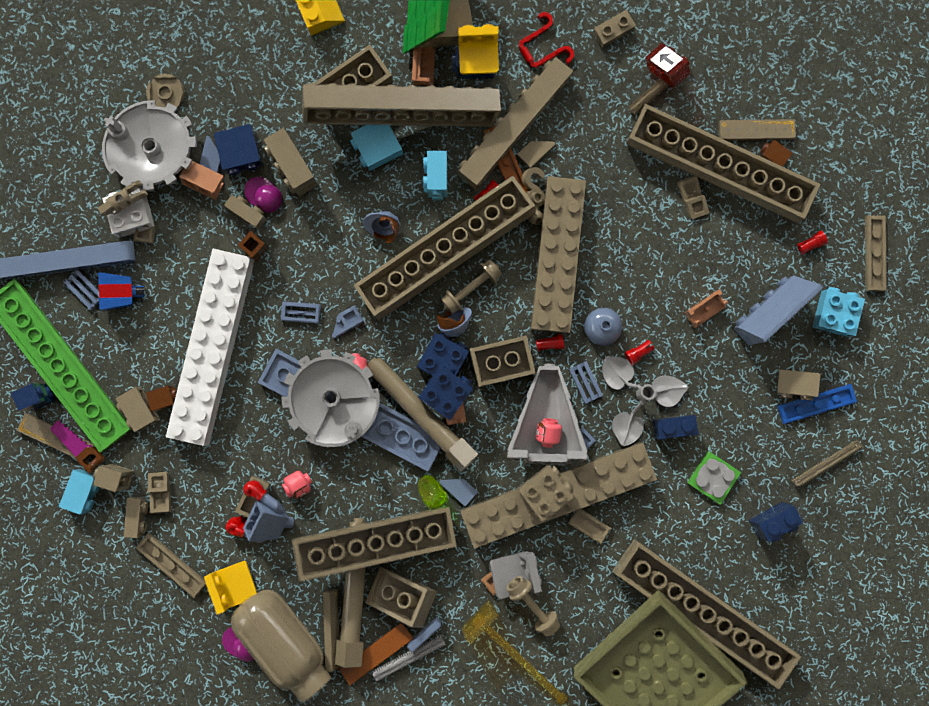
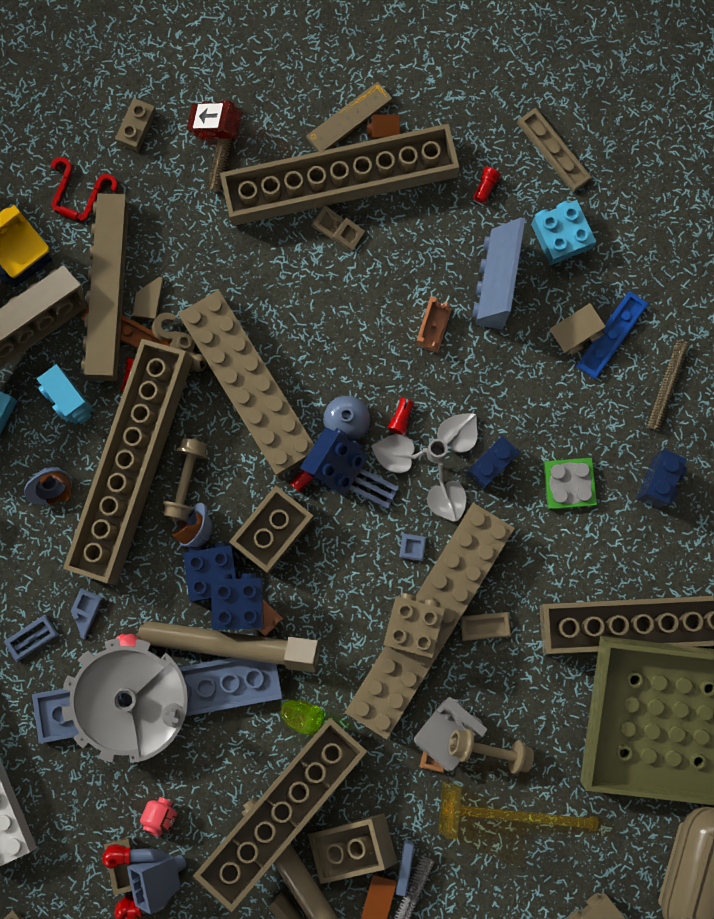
camera: 35 degrees left, 5 degrees down
(460, 489) = (328, 691): sand blue tile -> none
(548, 399) = (364, 557): light grey cone -> none
(548, 432) = (372, 564): coral head -> none
(575, 348) = (335, 460): none -> dark blue brick

